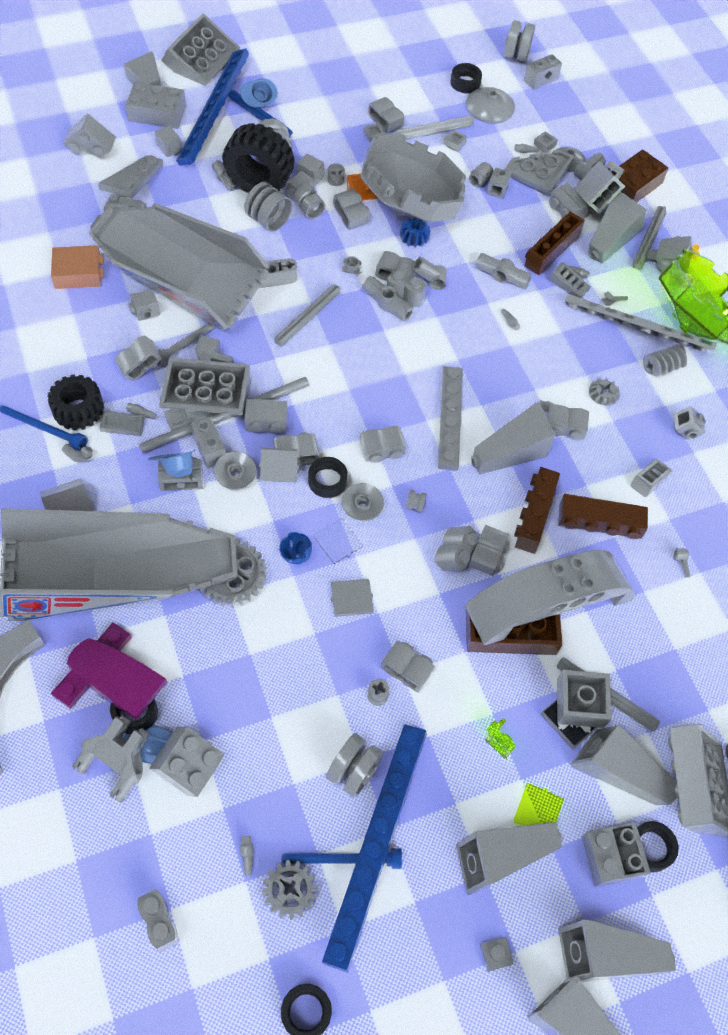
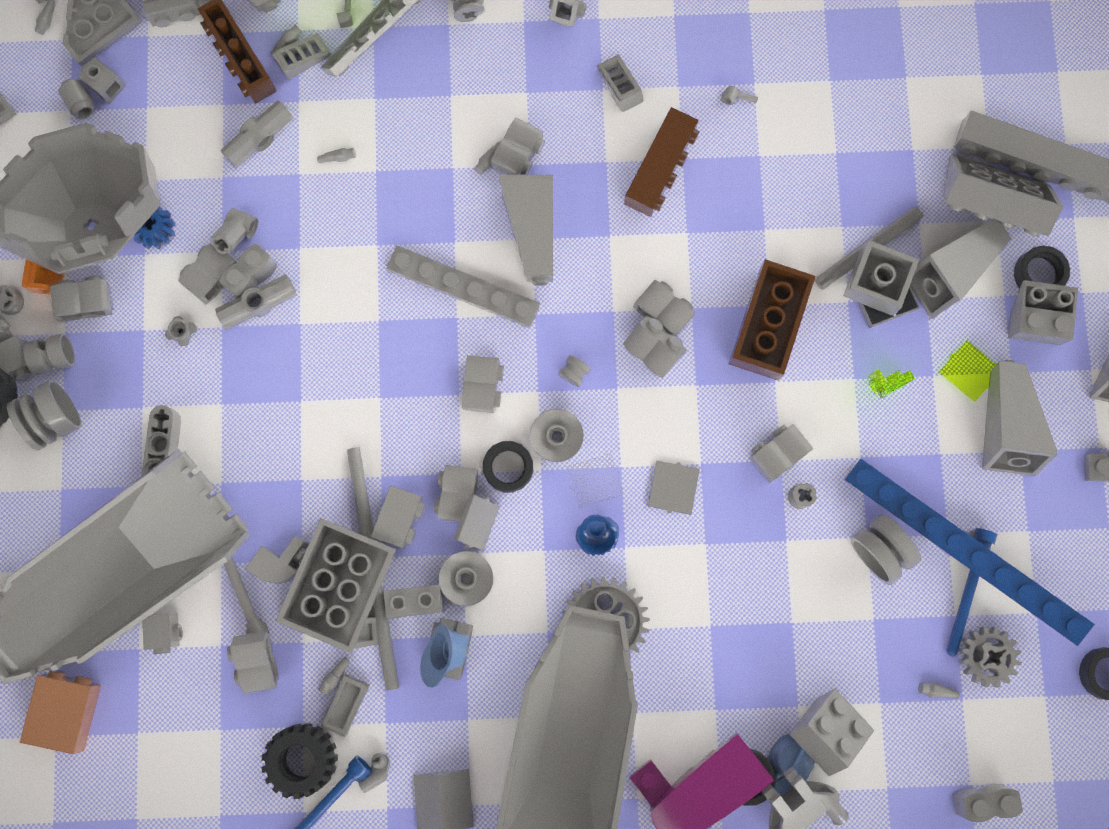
camera: 65 degrees left, 20 degrees up
(309, 313) = (245, 415): light grey axle -> none
(537, 510) = (628, 233): reddish brown brick -> none
(548, 591) = (762, 266): light grey slope -> none
(606, 398) = (479, 94): light grey gear -> none

